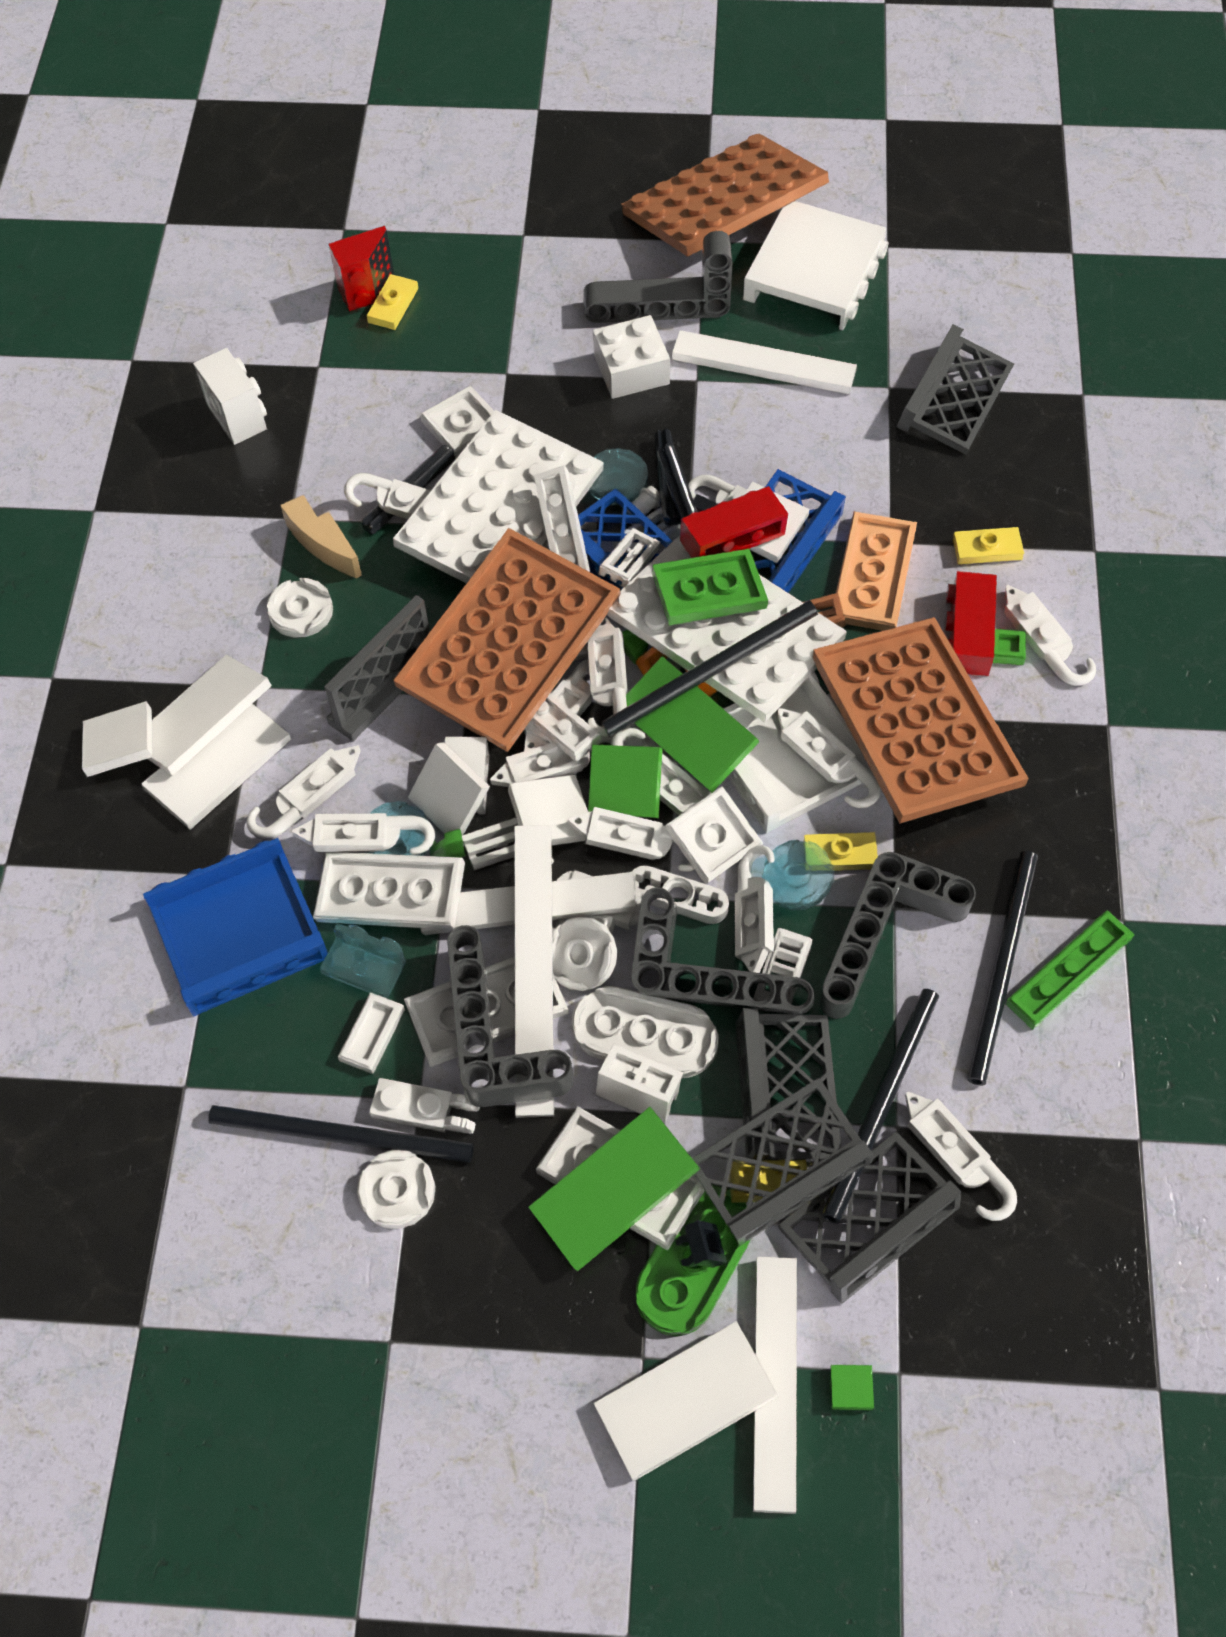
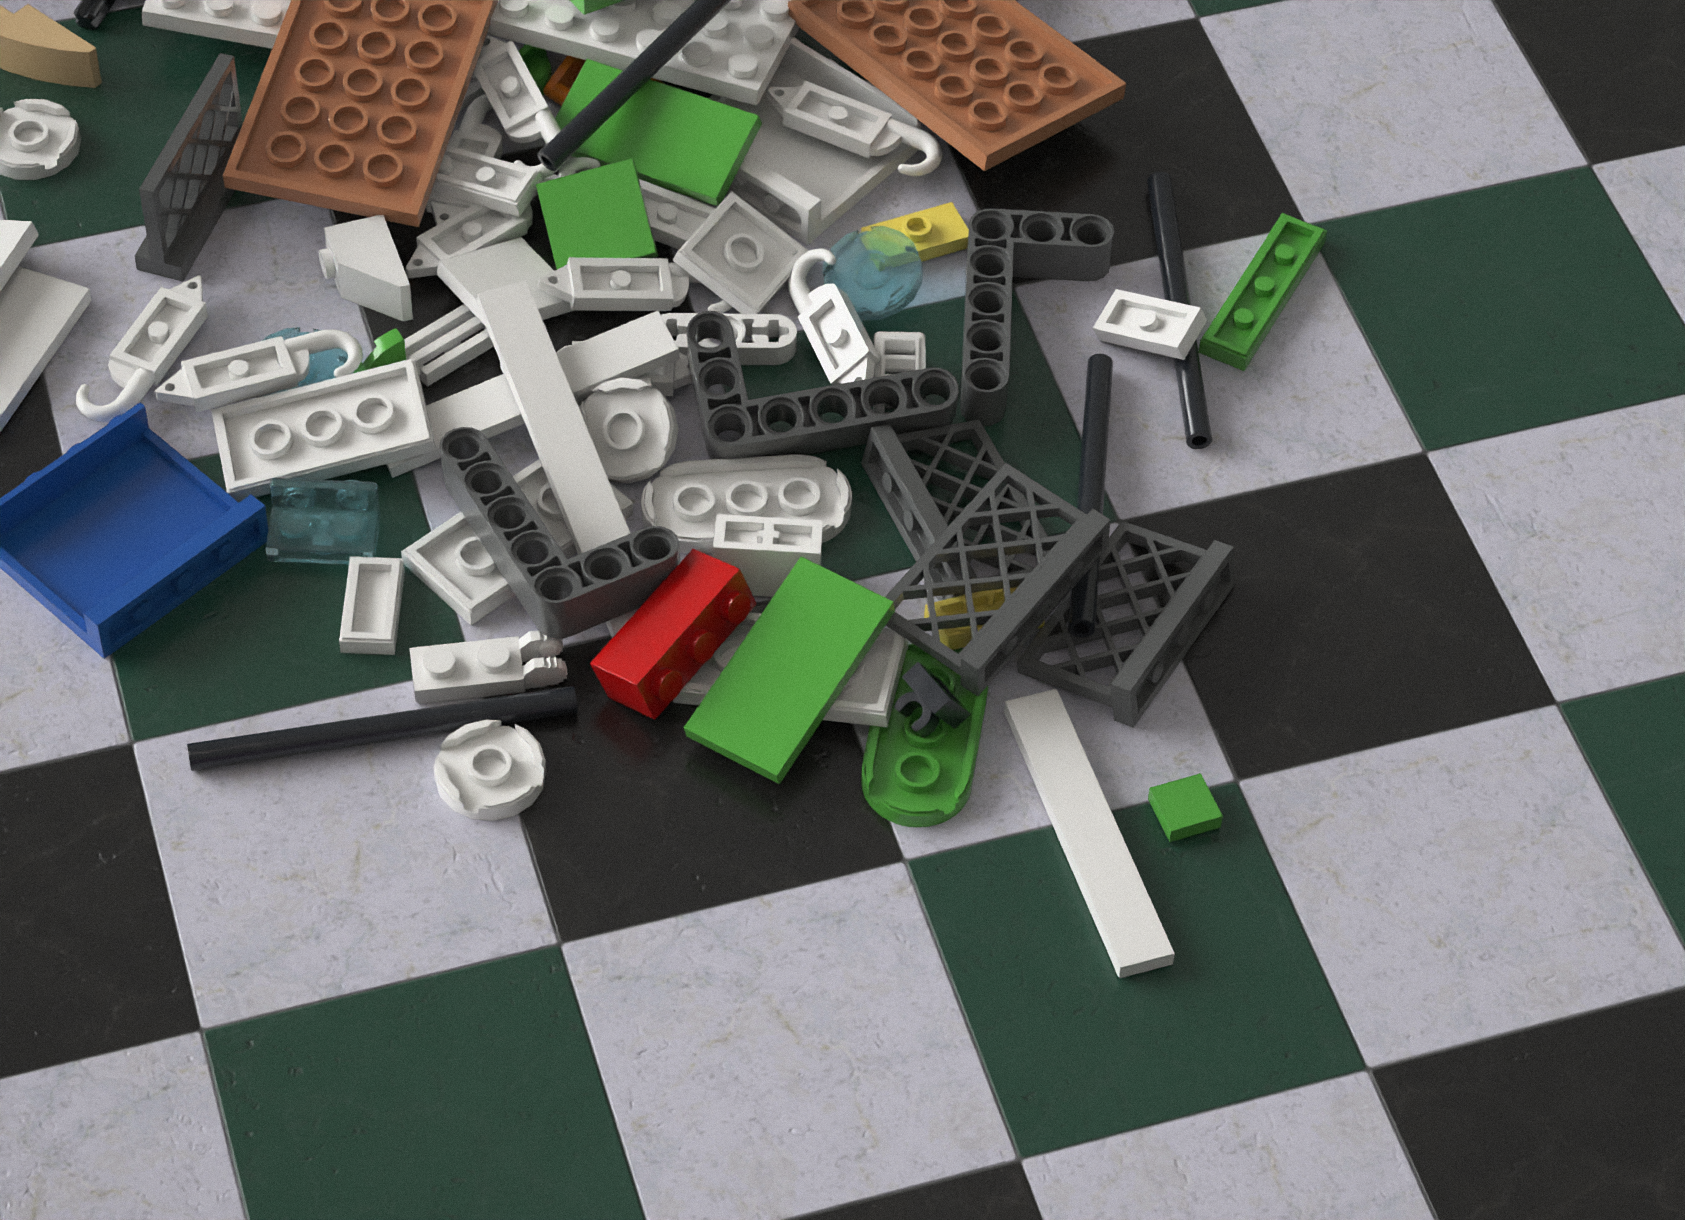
camera: 25 degrees left, 10 degrees down
(448, 790) = (356, 287): white tile -> none
(548, 1131) = (673, 633): none -> red brick
(685, 1400) = (982, 879): white tile -> none
(958, 1152) = (1207, 516): white plate -> none
(974, 978) = (1149, 324): none -> white plate

